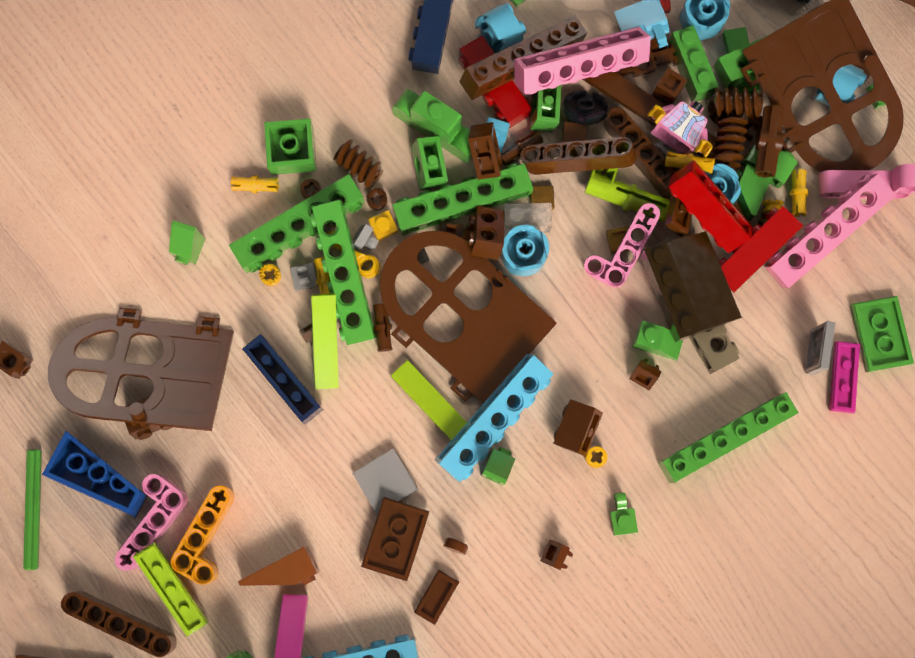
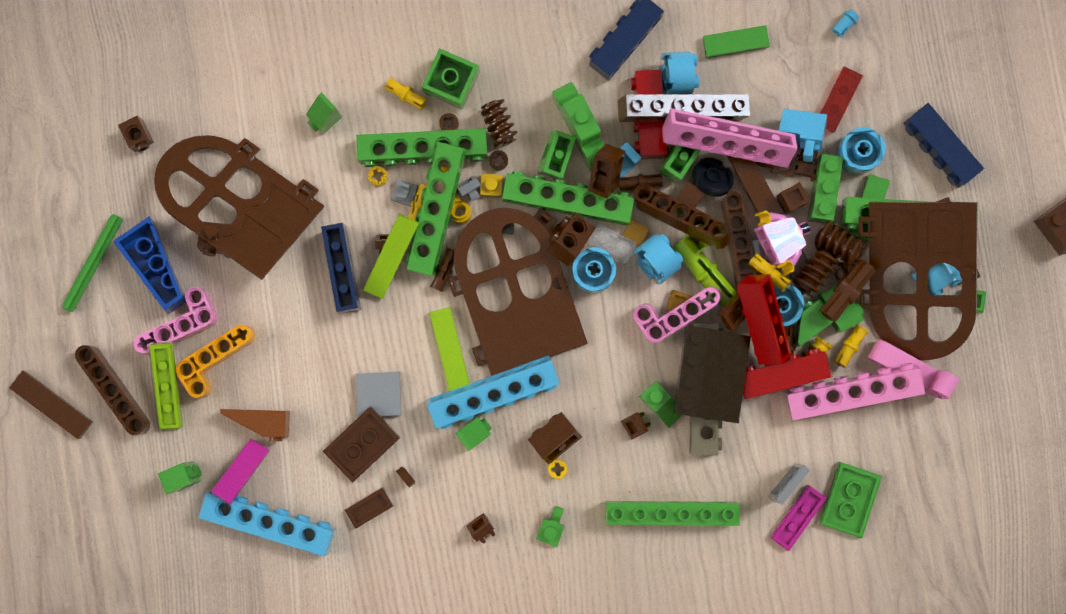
camera: 35 degrees right, 5 degrees up
(578, 207) = (658, 258): none -> medium azure brick

